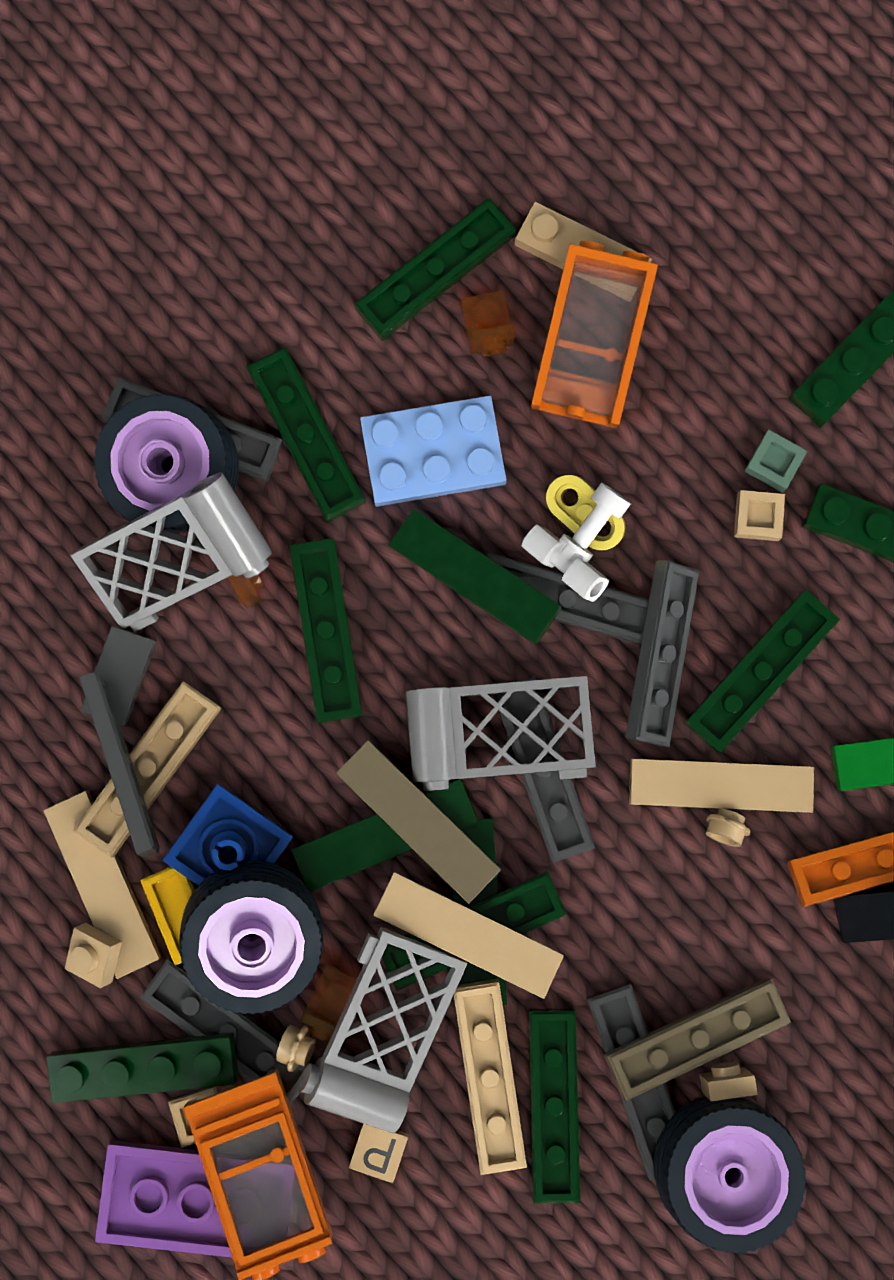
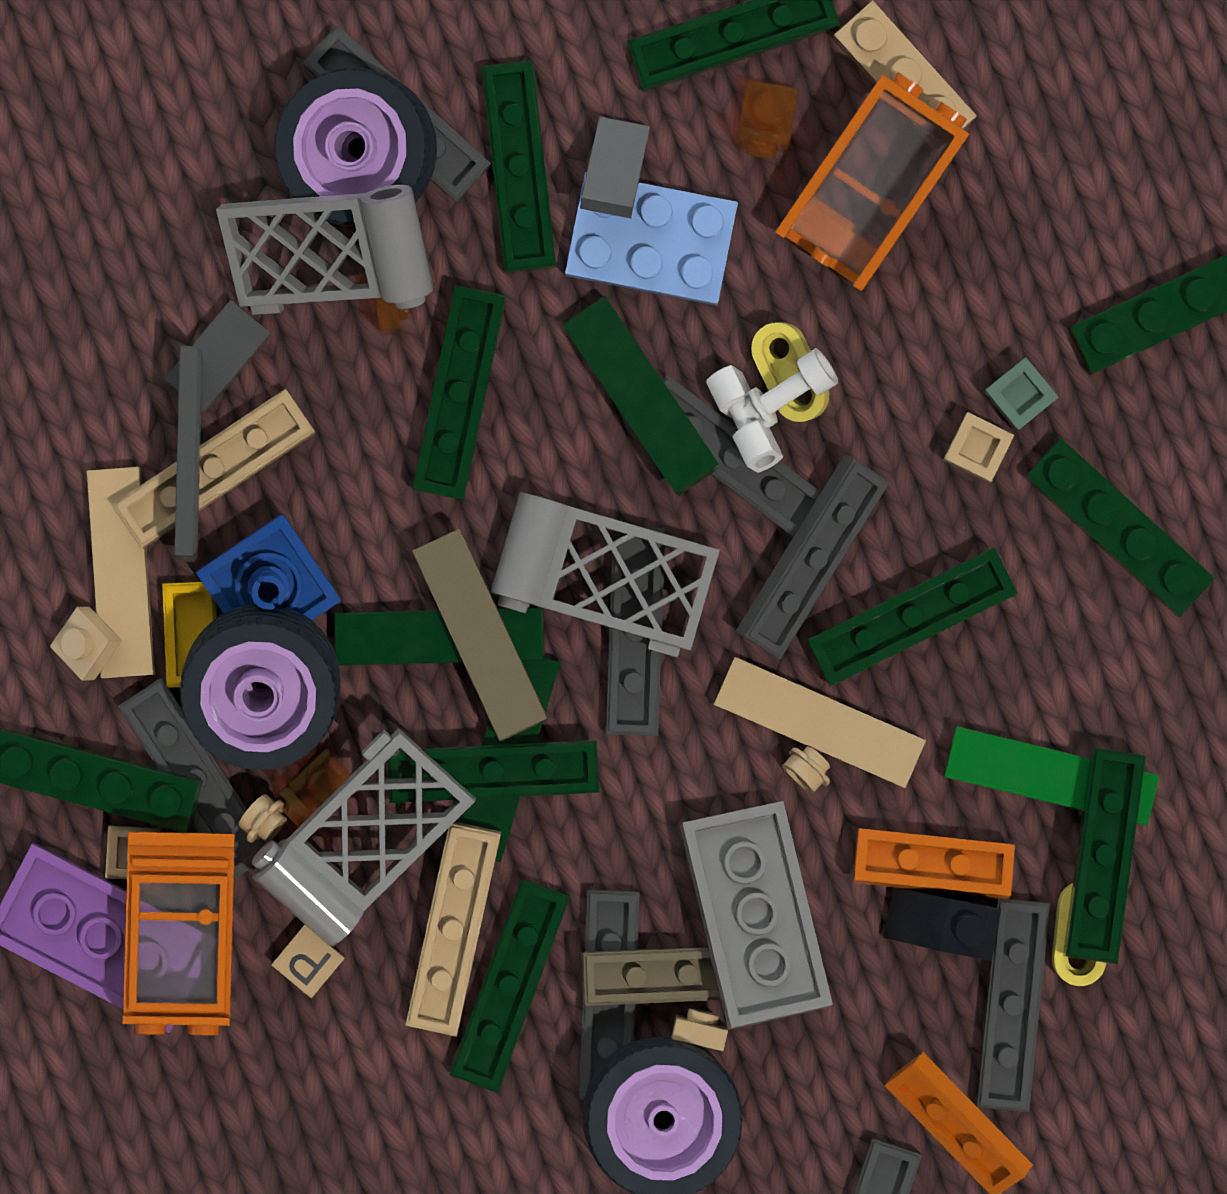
camera: 25 degrees right, 5 degrees up
(382, 403) = (614, 167): none -> dark grey tile
(469, 935) = (487, 772): tan tile -> none
(738, 968) = (756, 915): none -> light grey plate

